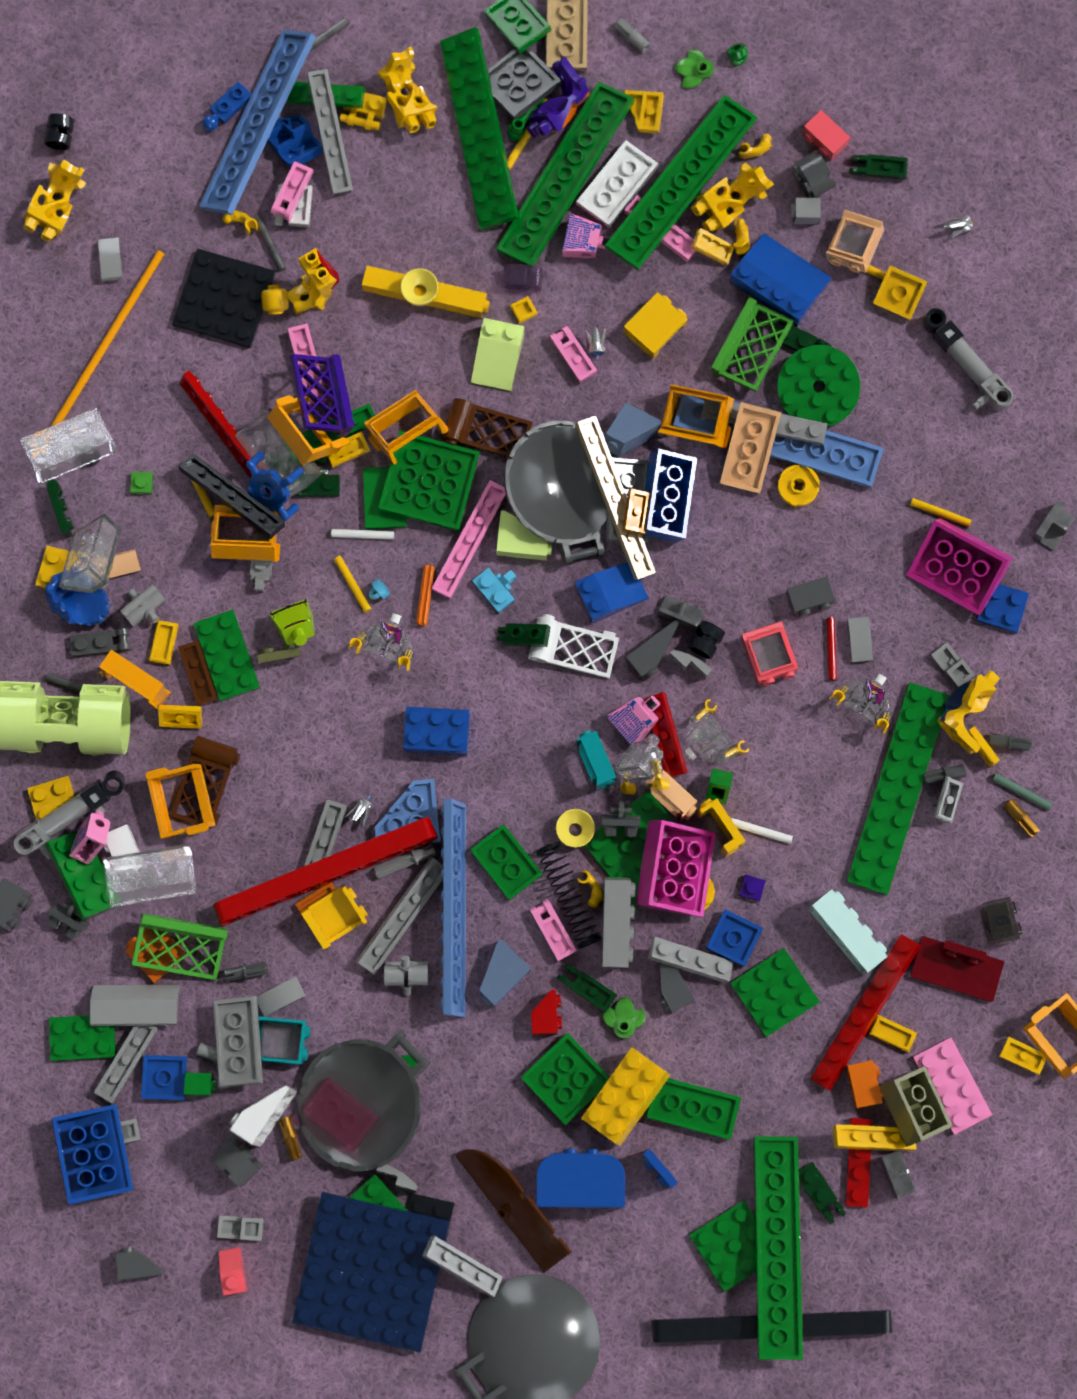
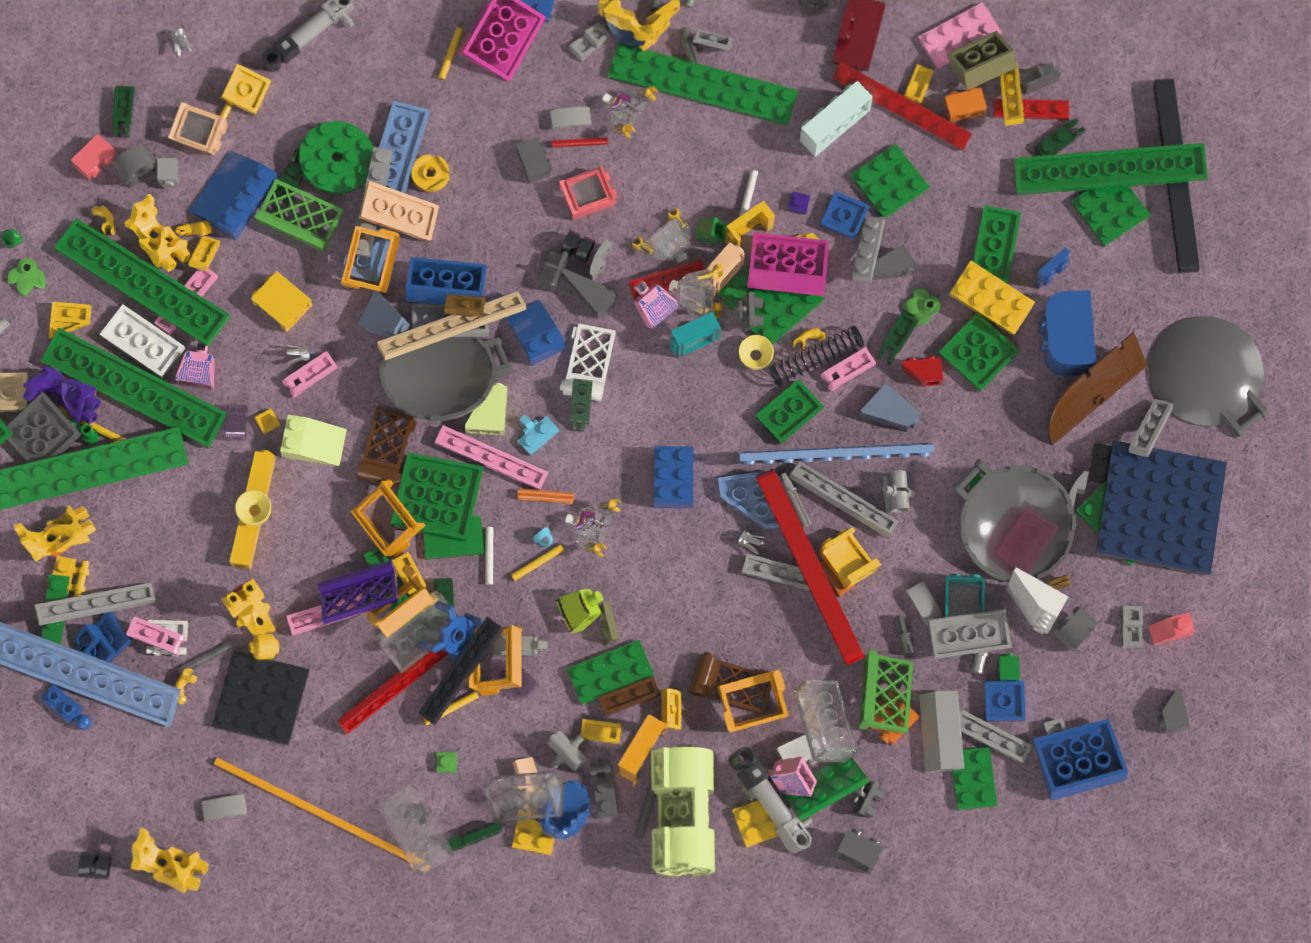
camera: 95 degrees left, 5 degrees down
(616, 922) = (840, 309): light grey brick -> none

